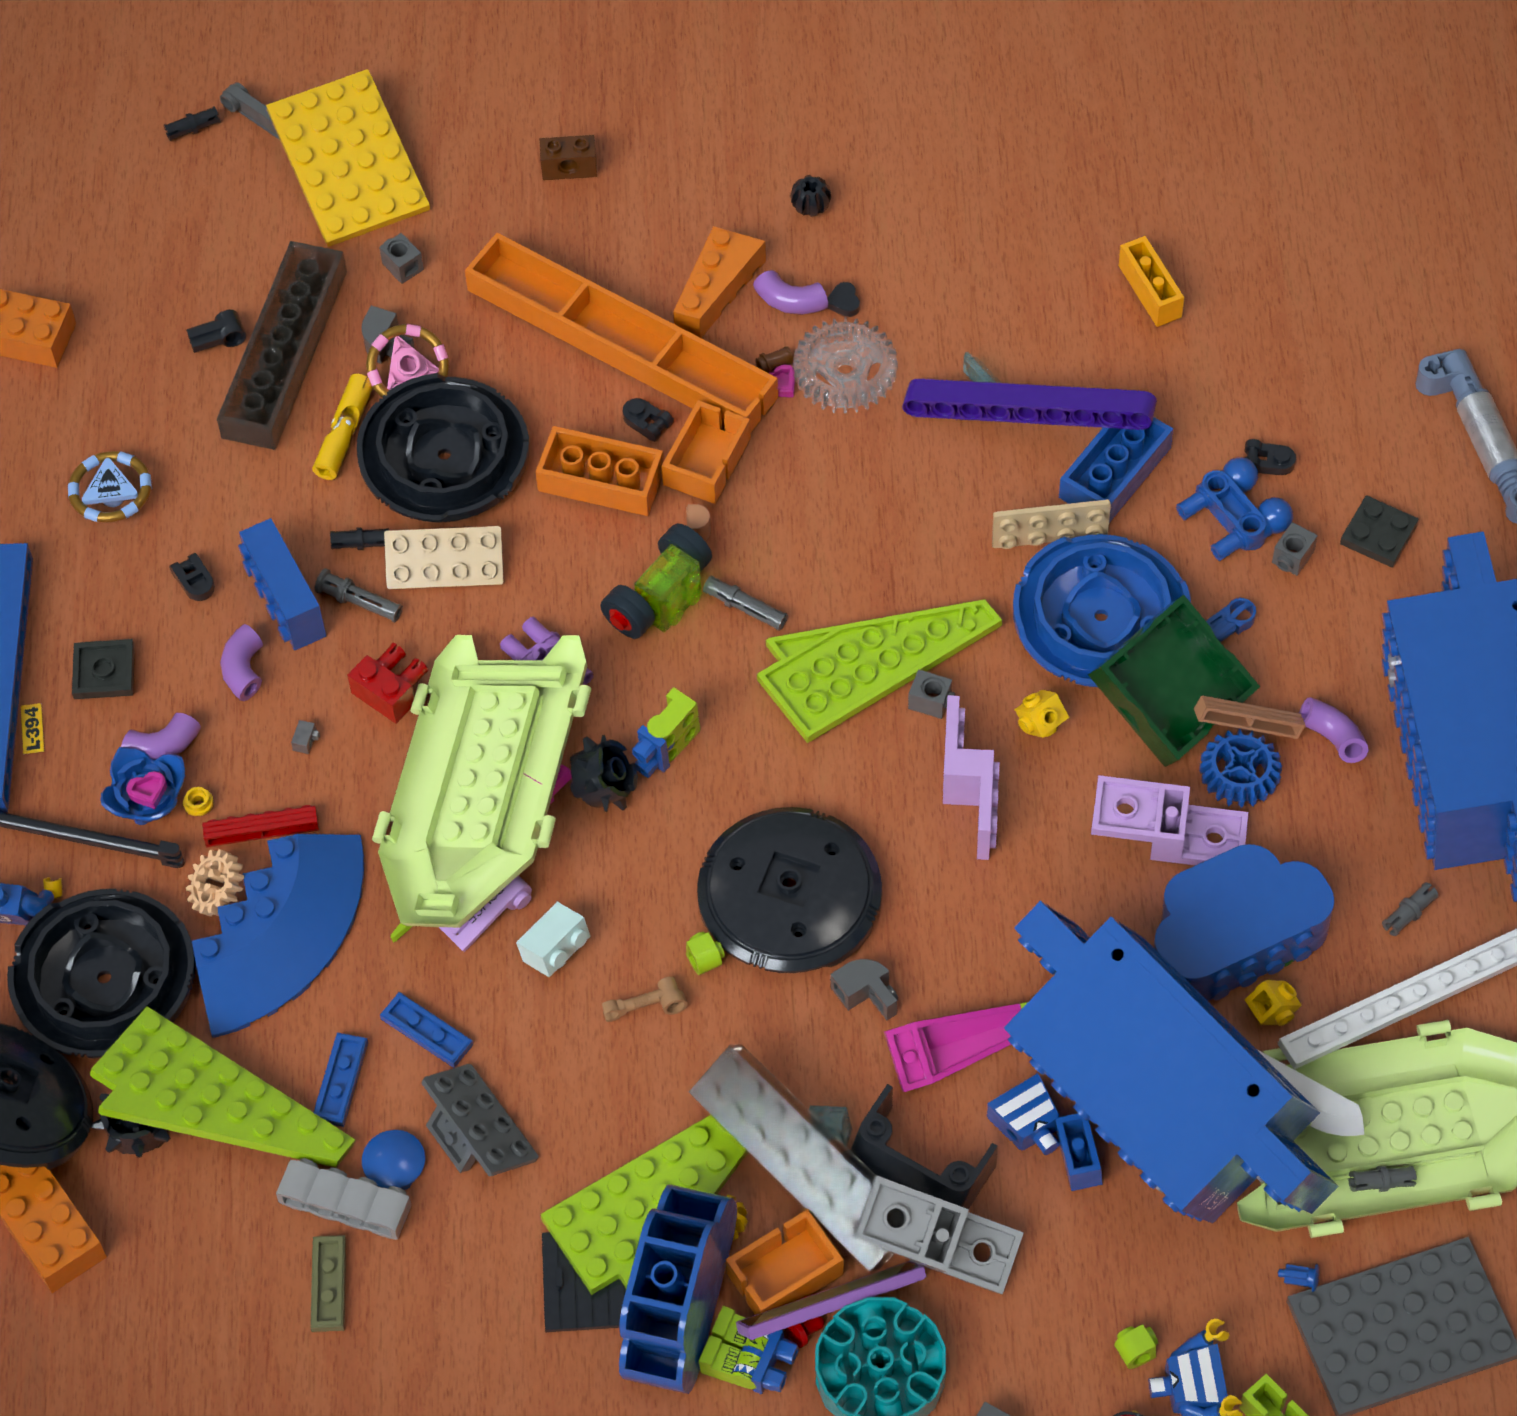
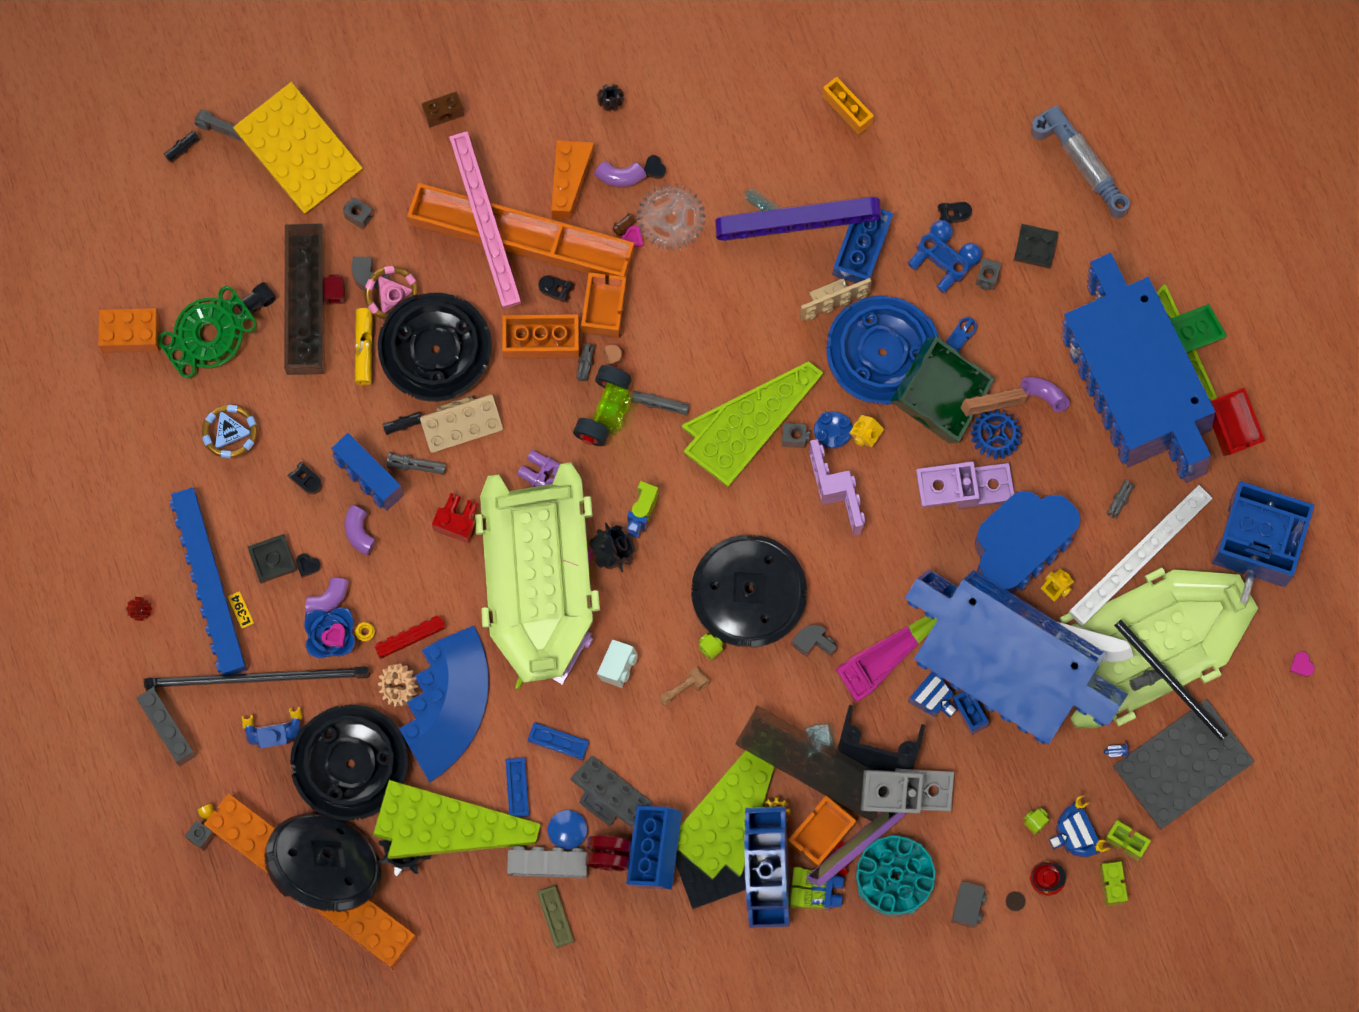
camera: 20 degrees left, 15 degrees up
(105, 347) = (192, 322): none -> green piece
(151, 692) = (307, 565): none -> black tile
(304, 737) = (415, 569): flat silver piece -> none
(329, 345) = (334, 290): none -> dark red brick
(440, 1205) = (608, 853): none -> dark red wheel
(513, 1215) = (654, 847): none -> blue brick
(571, 298) = (485, 220): none -> bright pink plate
(653, 523) = (585, 362): none -> dark grey axle
(991, 702) = (832, 429): none -> blue dish
(1417, 1189) = (1170, 680): none -> black piece

